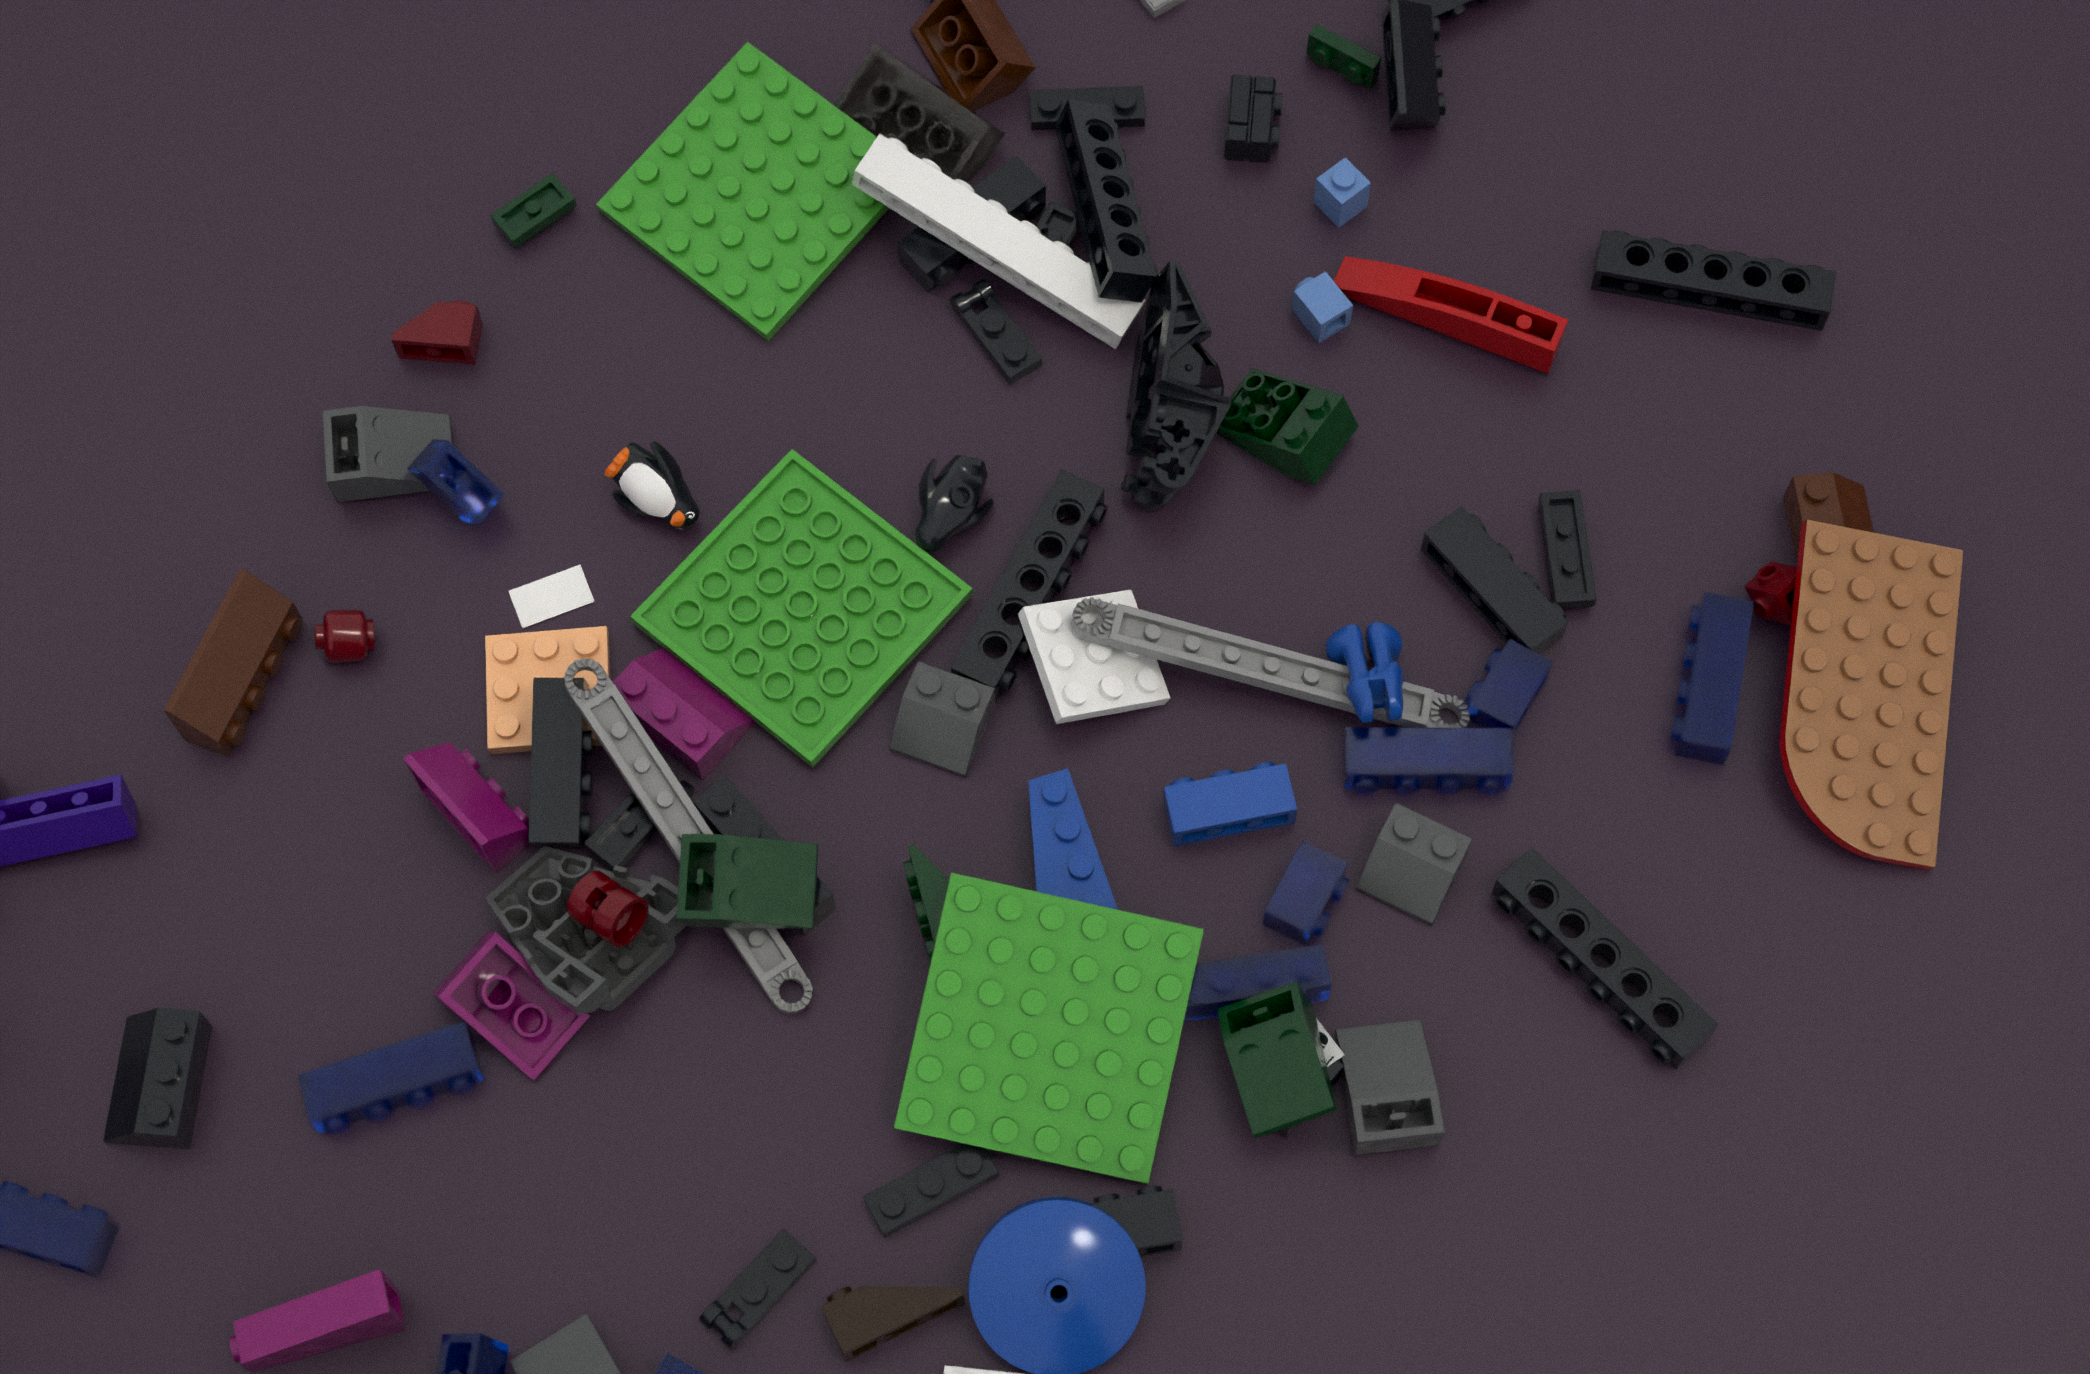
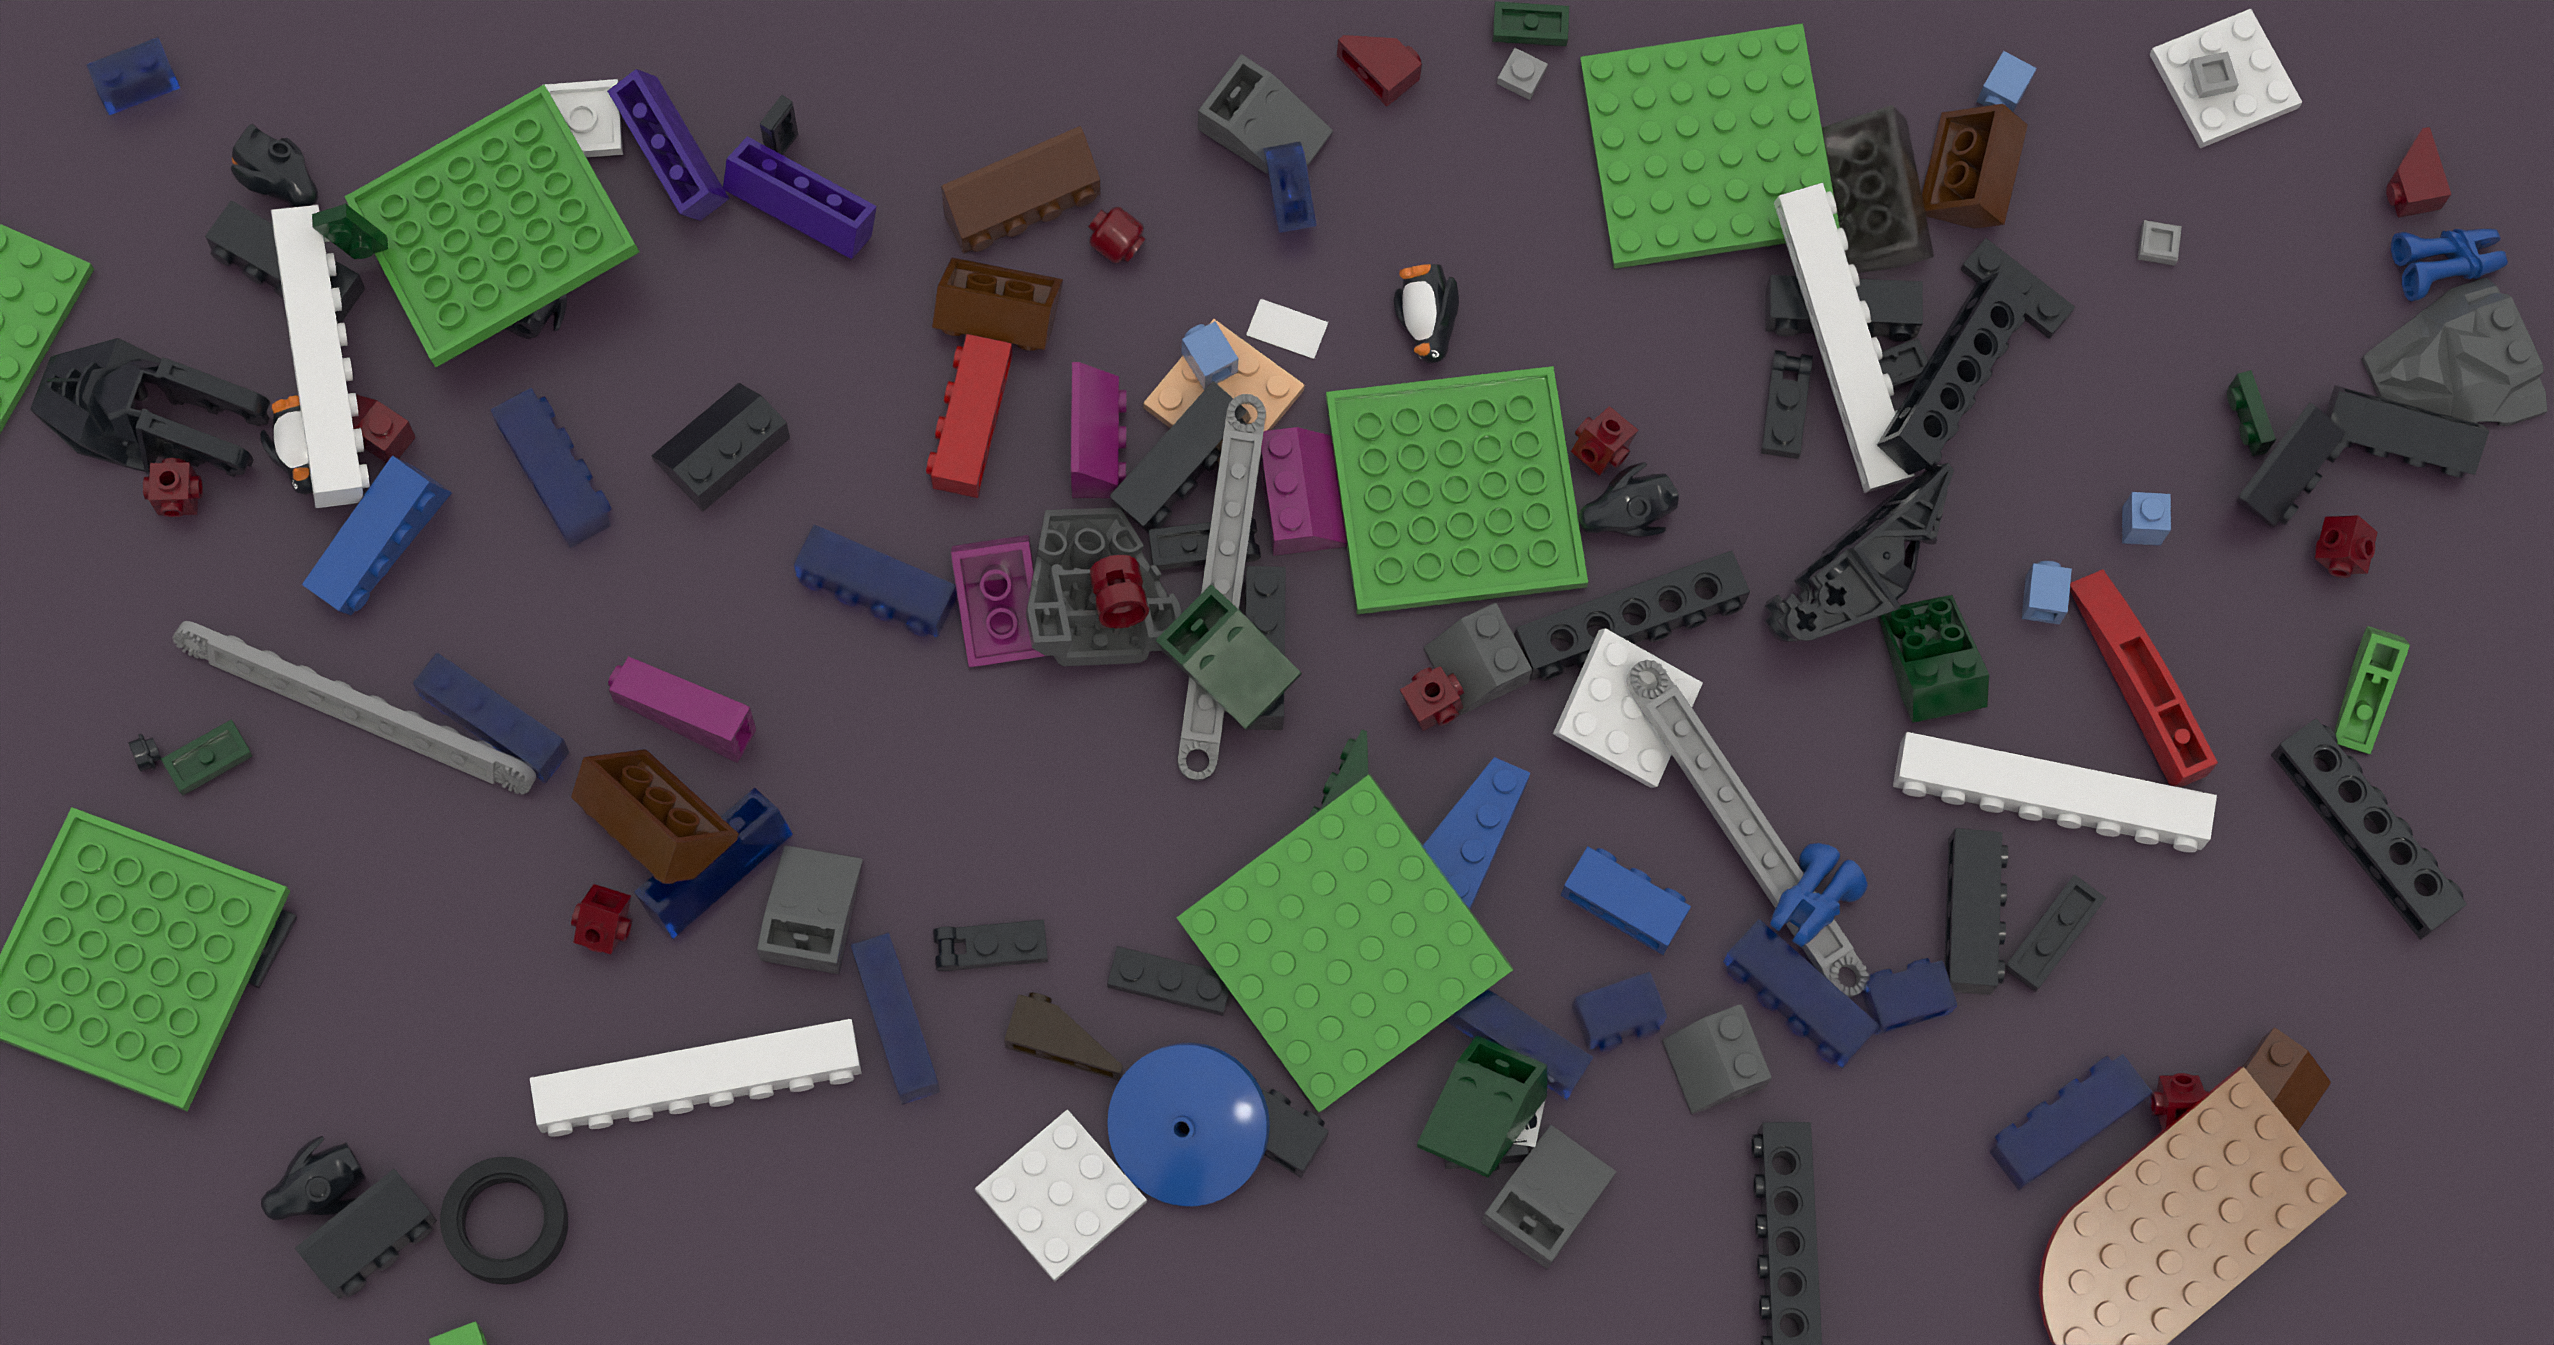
camera: 35 degrees right, 5 degrees up
(294, 772) = (997, 303): none -> reddish brown slope
(353, 877) = (971, 415): none -> red brick
(509, 663) = (1209, 354): none -> medium blue brick
(561, 253) = (1522, 73): none -> light grey plate
(884, 471) = (1604, 440): none -> dark red brick
(934, 791) = (1422, 701): none -> dark red brick
(1250, 118) = (2132, 402): black brick -> none
(1465, 447) = (2054, 792): none -> white brick
(1502, 93) = (2346, 545): none -> dark red brick
(1615, 178) = (2370, 688): none -> bright green slope

